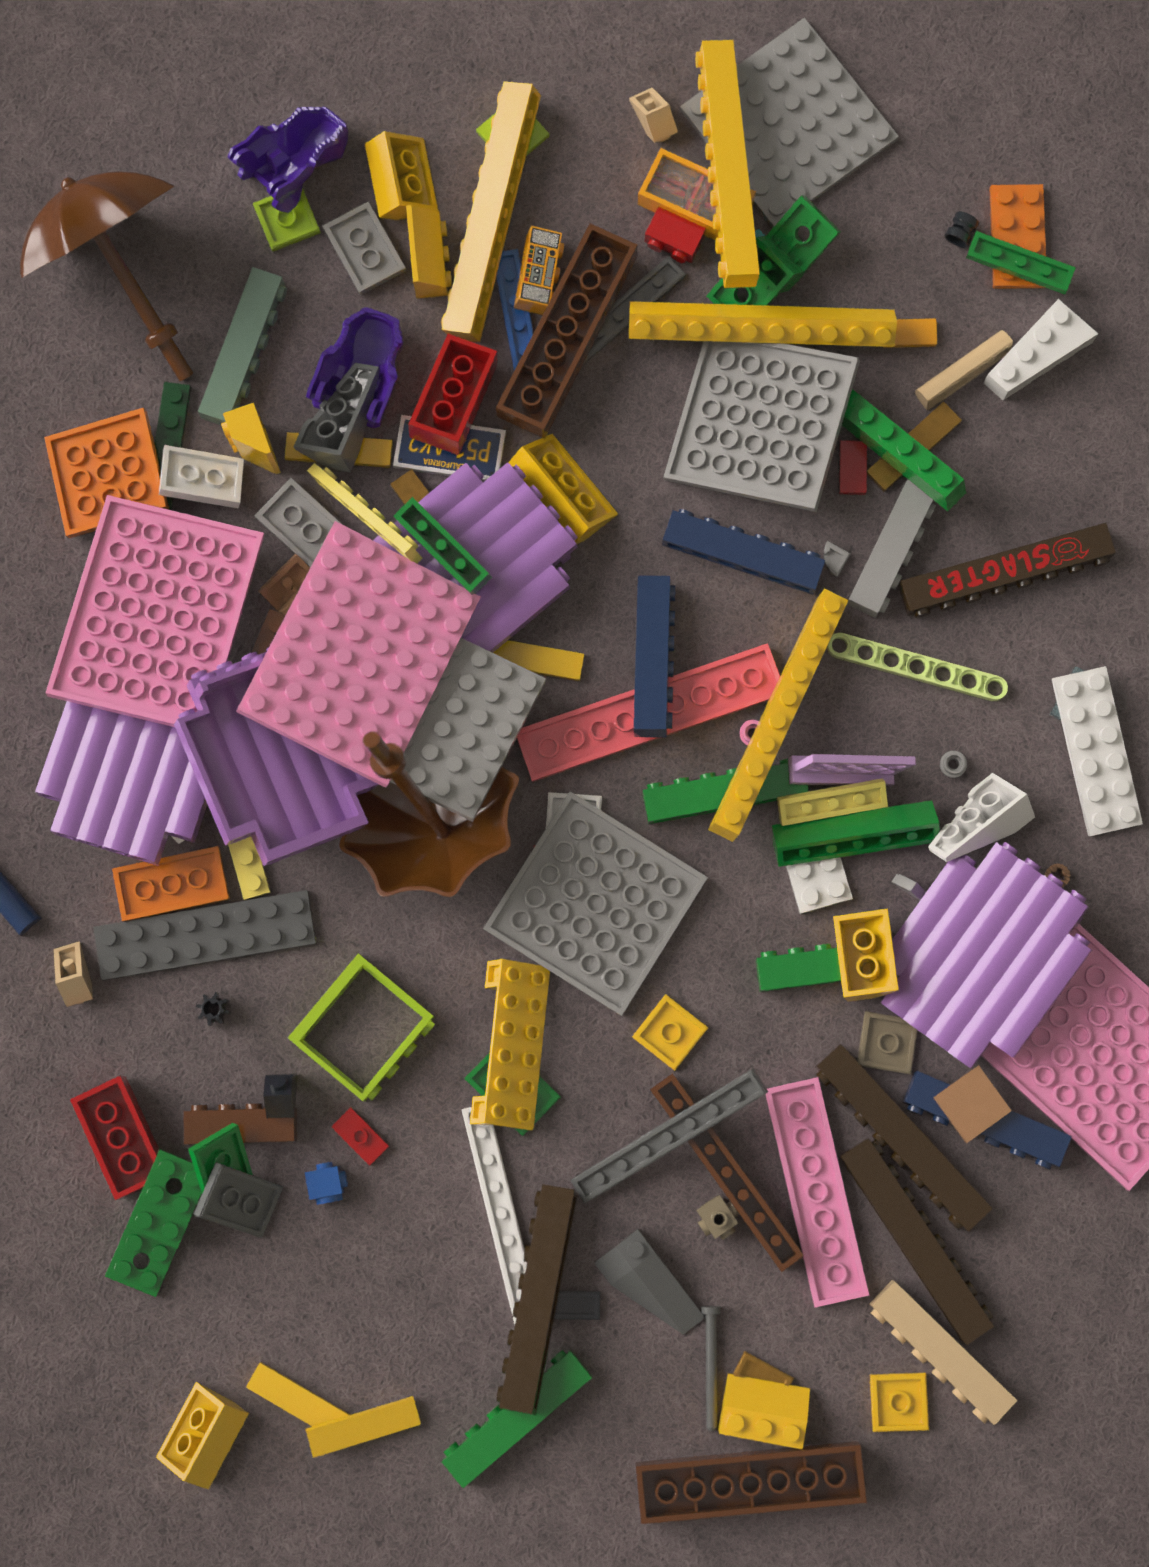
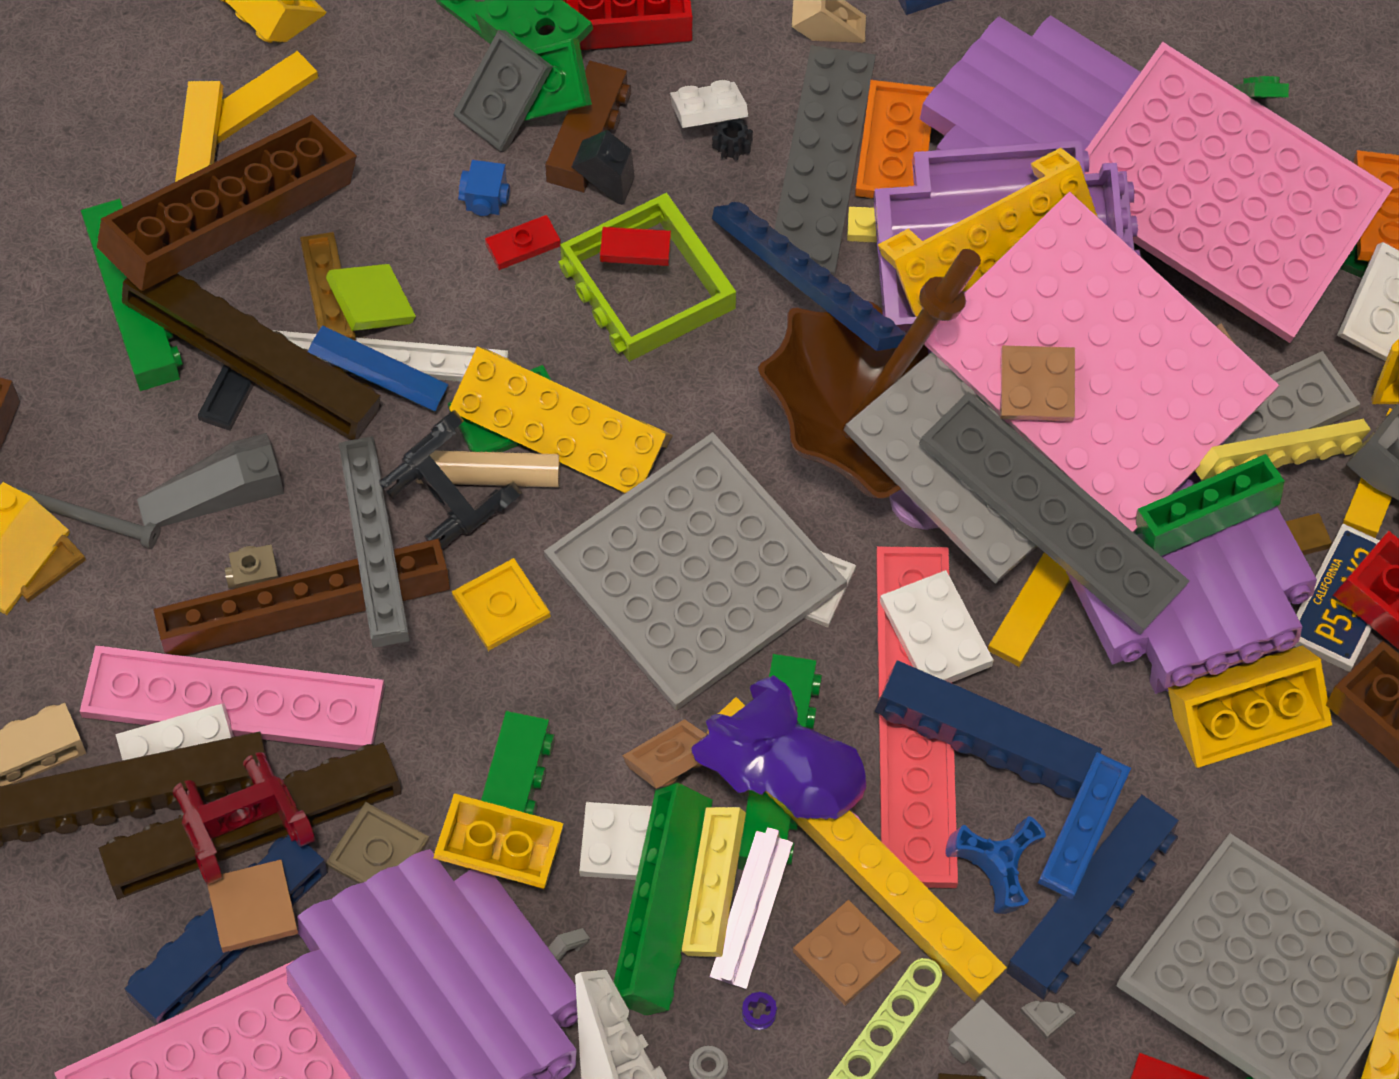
camera: 105 degrees right, 20 degrees down
(48, 615) = (1263, 87): none -> green plate
(190, 1037) = (708, 104): none -> white plate
(282, 758) = (988, 231): none -> yellow bracket
(334, 900) = (809, 276): none -> dark blue plate
(346, 1042) = (635, 246): none -> red tile
(398, 688) = (1037, 383): none -> medium nougat plate
(427, 1367) = (225, 202): none -> reddish brown brick
(455, 1230) = (370, 297): none -> lime tile
(457, 1267) = (319, 257): none -> pearl gold tile
(488, 653) = (1054, 512): none -> dark grey plate
(518, 1196) = (378, 368): none -> blue tile
(569, 1082) = (499, 468): none -> tan brick
(586, 716) = (936, 628): none -> white plate
(595, 1126) = (419, 465): none -> black connector
(702, 569) = (1084, 825): none -> blue tile
(740, 619) = (998, 860): none -> blue piece
(743, 777) = (772, 753): none -> dark purple animal
(748, 865) = (665, 755): none -> medium nougat plate
(840, 701) = (846, 952): none -> medium nougat plate
(862, 1218) = (176, 733): none -> white plate
(909, 739) = (753, 1001): none -> dark purple bush
(929, 1162) = (236, 810): none -> dark red connector

